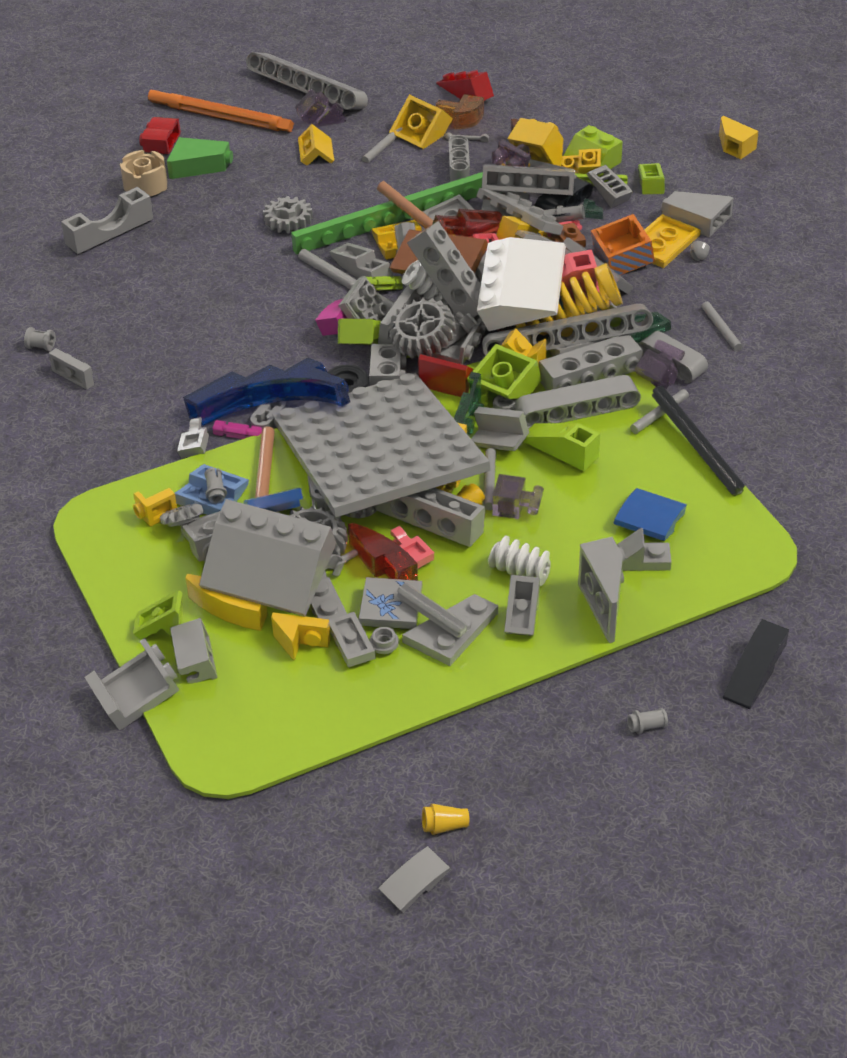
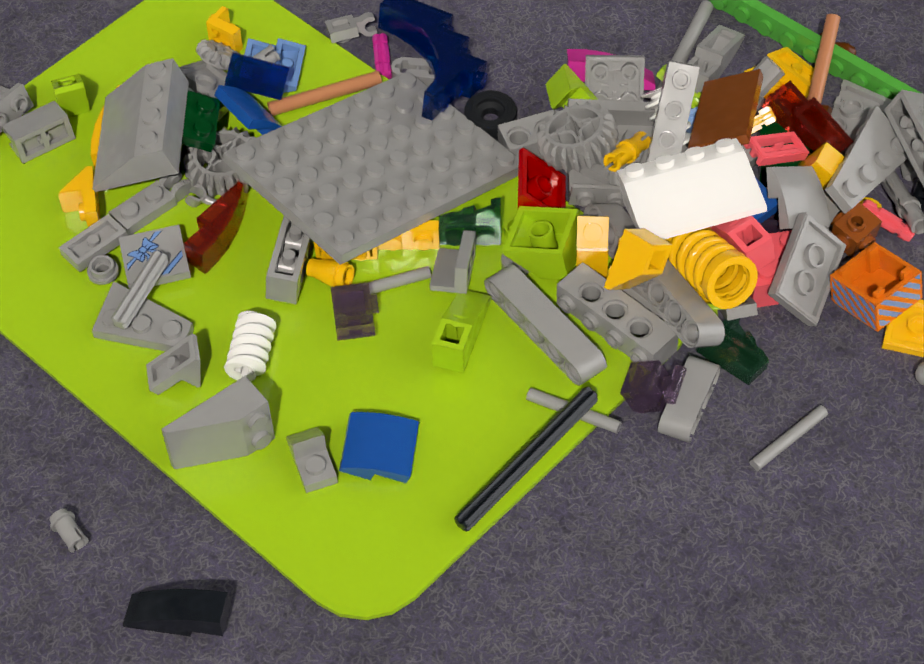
camera: 70 degrees right, 10 degrees up
(235, 486) = (257, 76): none -> clear blue slope
(415, 547) = (238, 251): coral plate -> none
(455, 309) = (627, 151): none -> yellow pin
(573, 317) = (638, 259): none -> yellow slope

